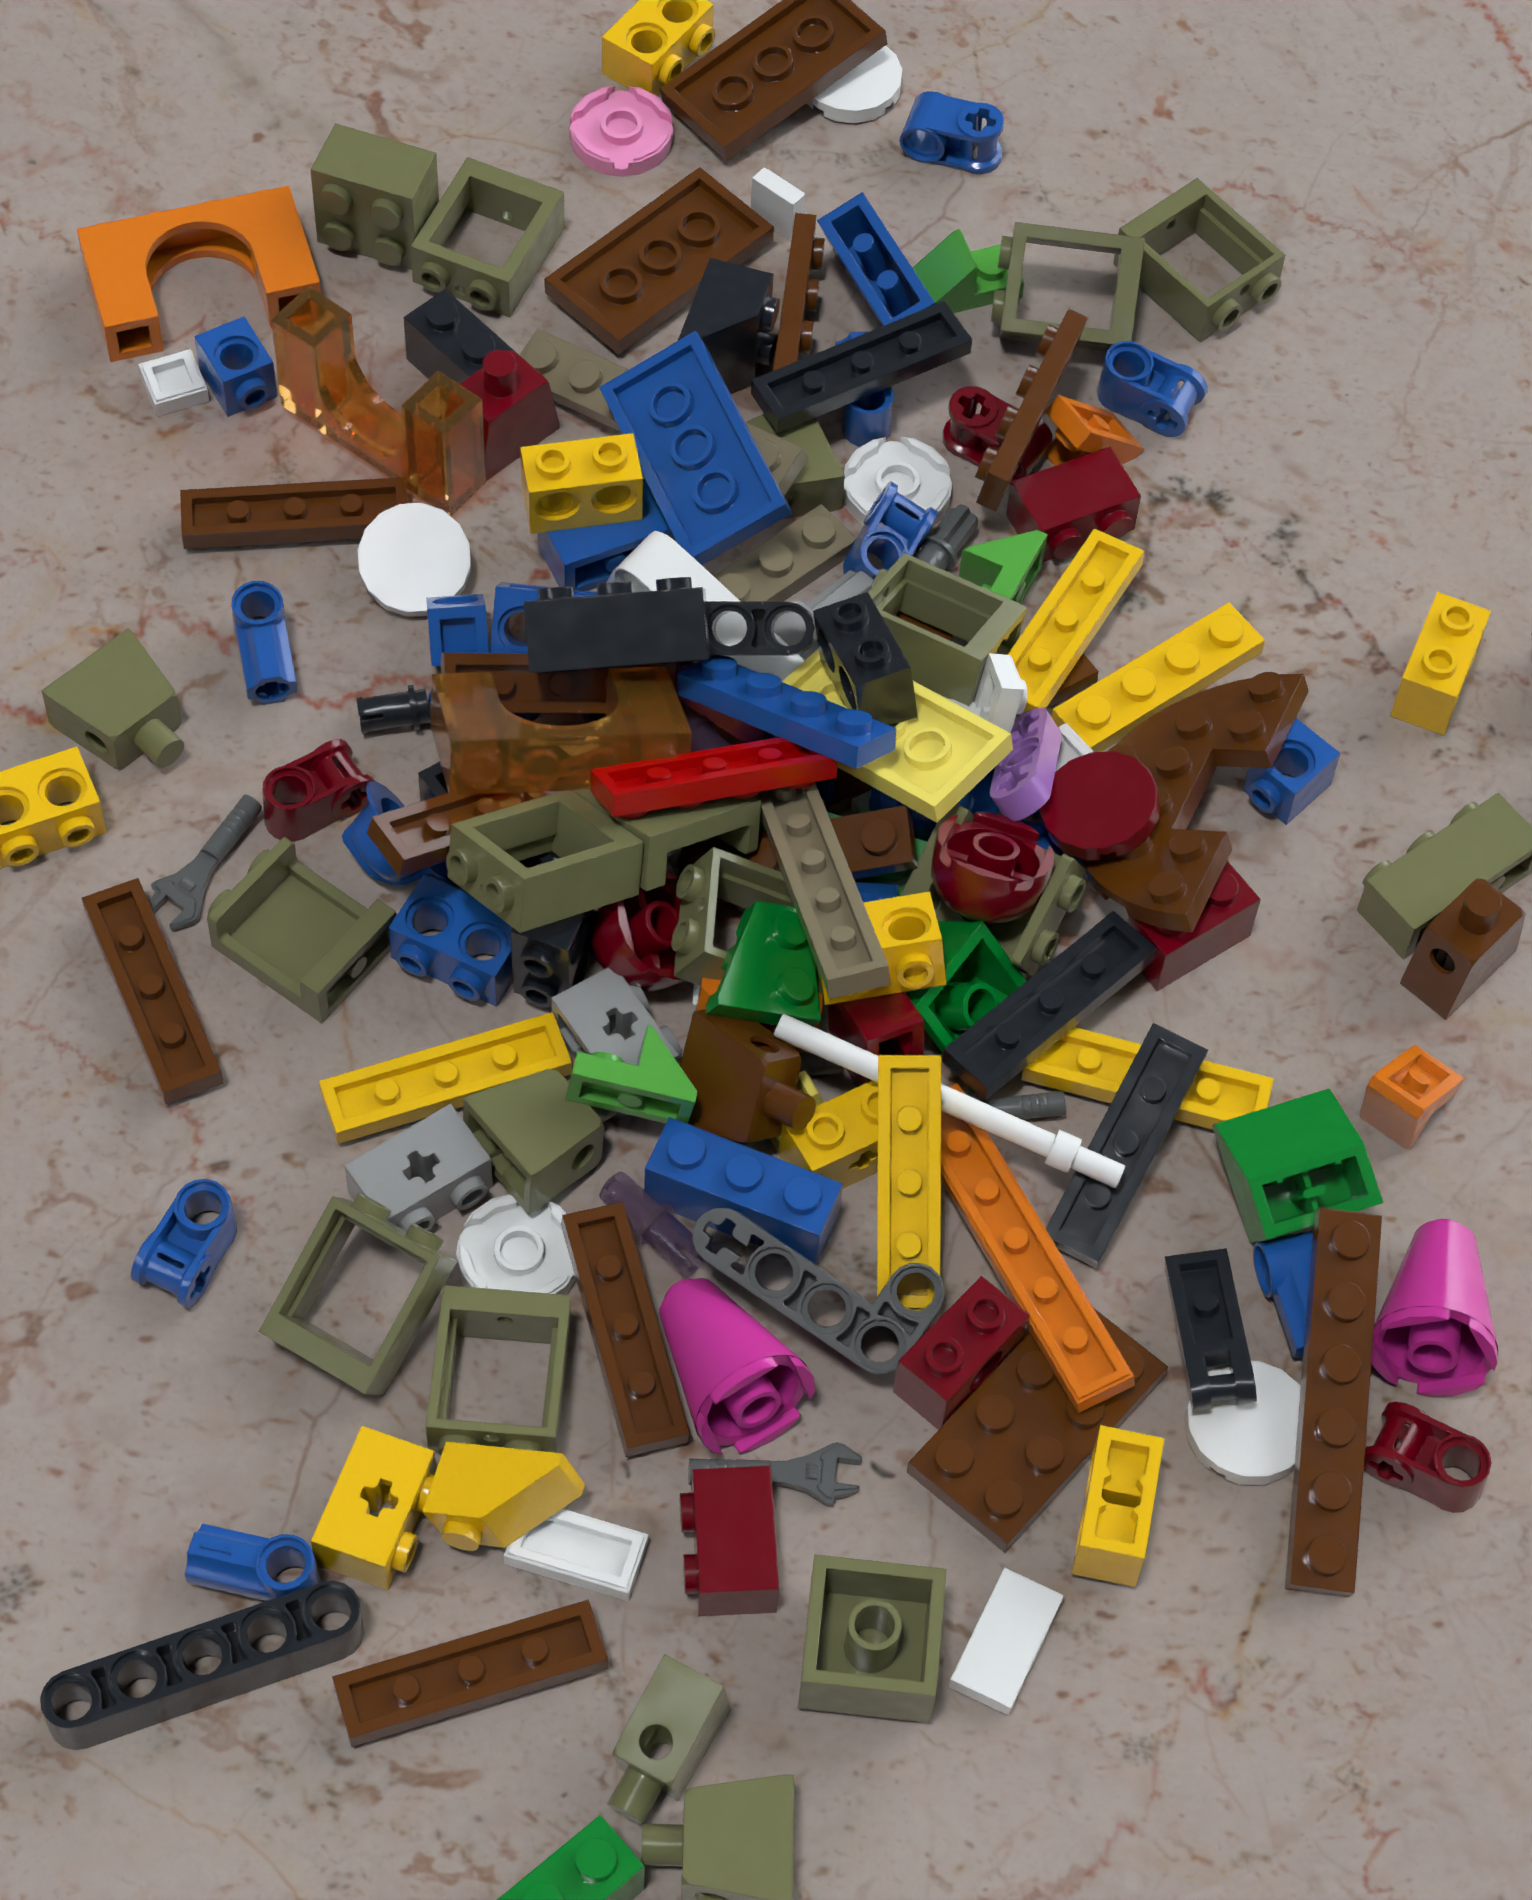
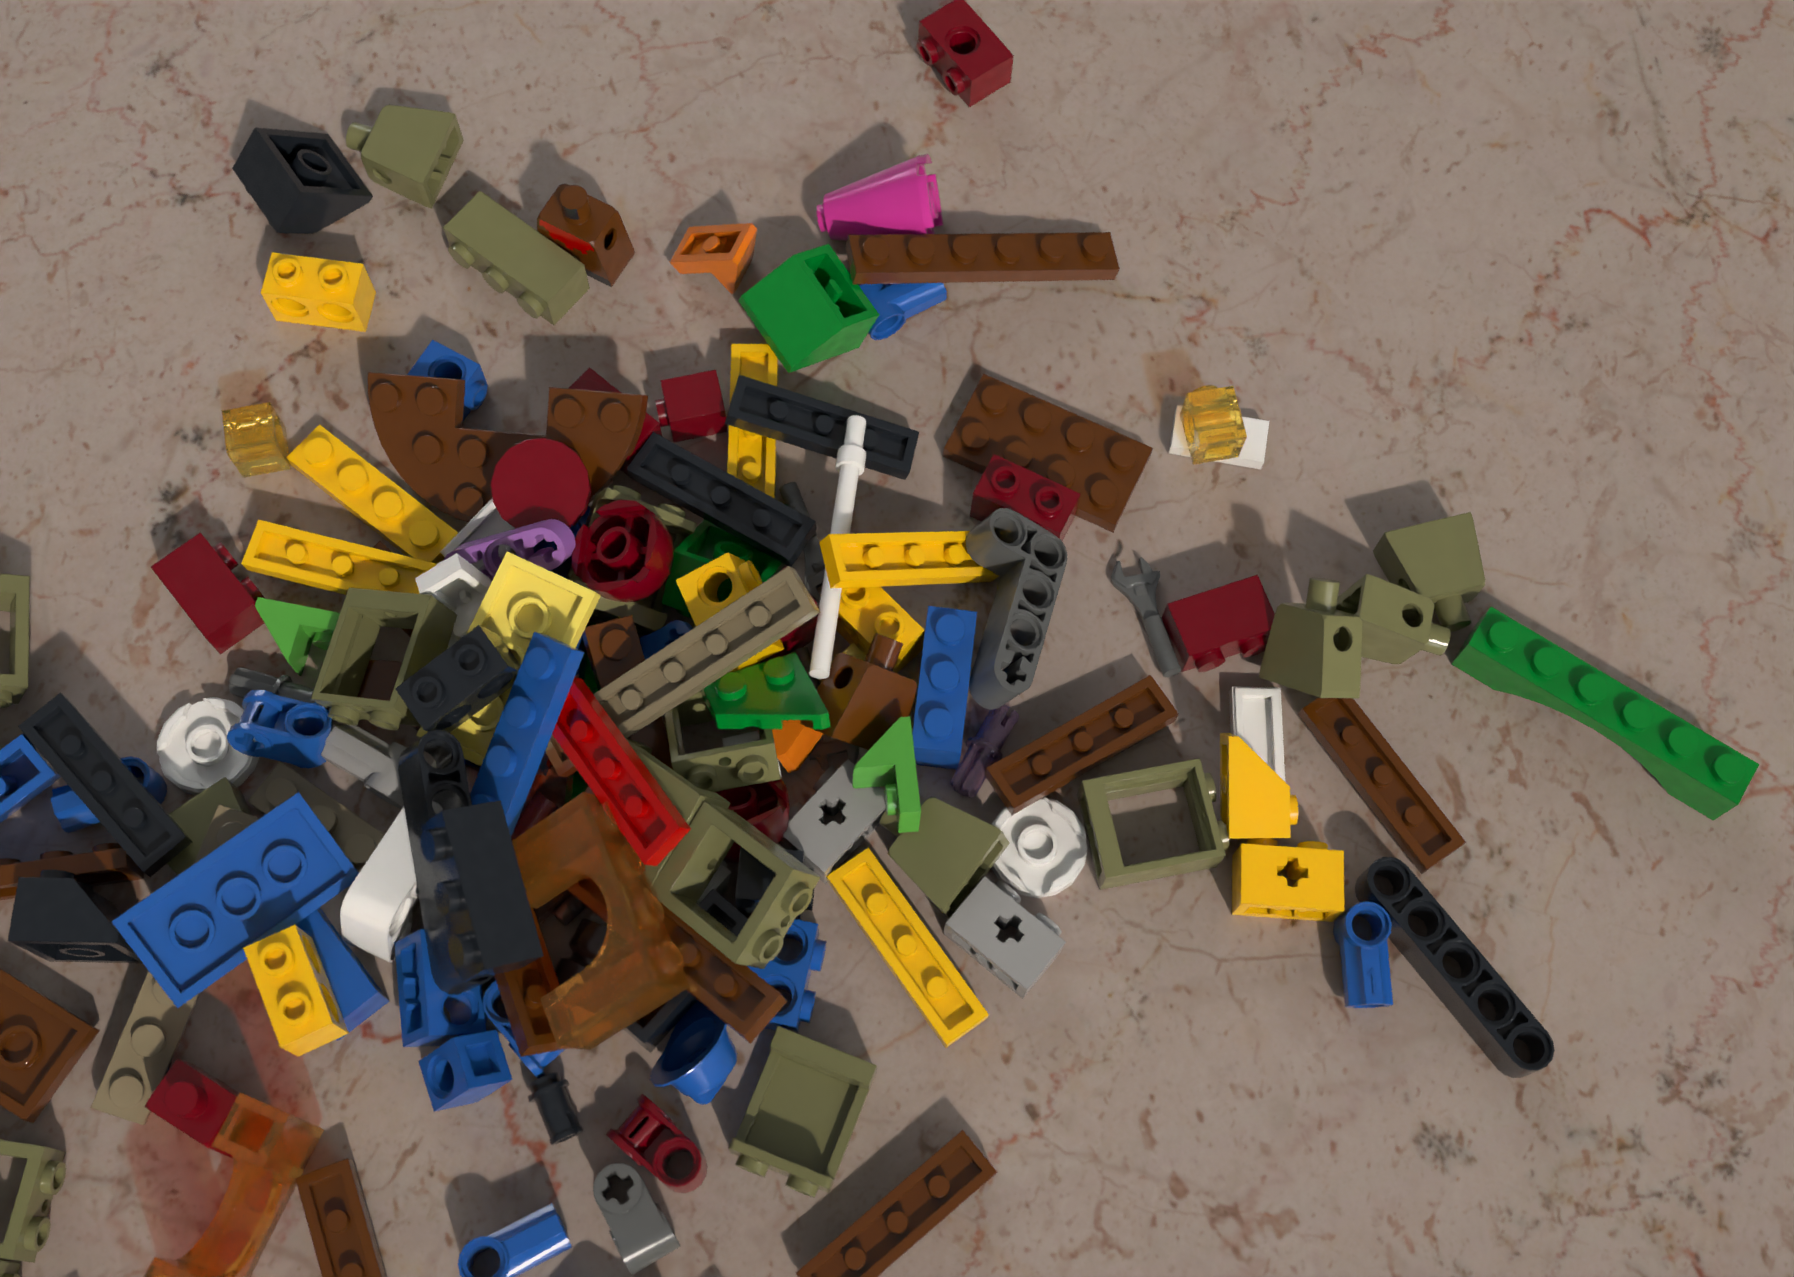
camera: 105 degrees left, 10 degrees up
(183, 1253) = (1132, 1107): blue piece -> none
(188, 885) = (776, 1232): dark grey piece -> none
(247, 748) = (637, 1225): none -> dark grey piece
(286, 1317) = (1177, 950): olive window -> none
(413, 556) = (388, 1140): white tile -> none
(448, 338) = (134, 1173): black brick -> none
(673, 1613) = (1315, 645): none -> olive torso
(731, 1368) = (1089, 660): dark pink cone -> none
(872, 1638) = (1265, 509): olive brick -> none
(981, 429) = (143, 671): dark red piece -> none
(1014, 1609) = (1212, 424): none -> clear yellow brick
(1020, 424) = (126, 628): reddish brown plate -> none
(1030, 1265) = (945, 467): orange tile -> none
(1087, 430) = (137, 597): orange slope -> none
(1118, 1506) = (1110, 376): yellow brick -> none
(1146, 387) = (70, 551): blue piece -> none
(1199, 1010) = (692, 406): none -> dark red brick
(1210, 1327) = (950, 347): black plate -> none
(1251, 1439) = (1004, 320): white tile -> none
(1254, 571) = (256, 439): none -> clear yellow brick
(1424, 1454) = (998, 205): dark red piece -> none

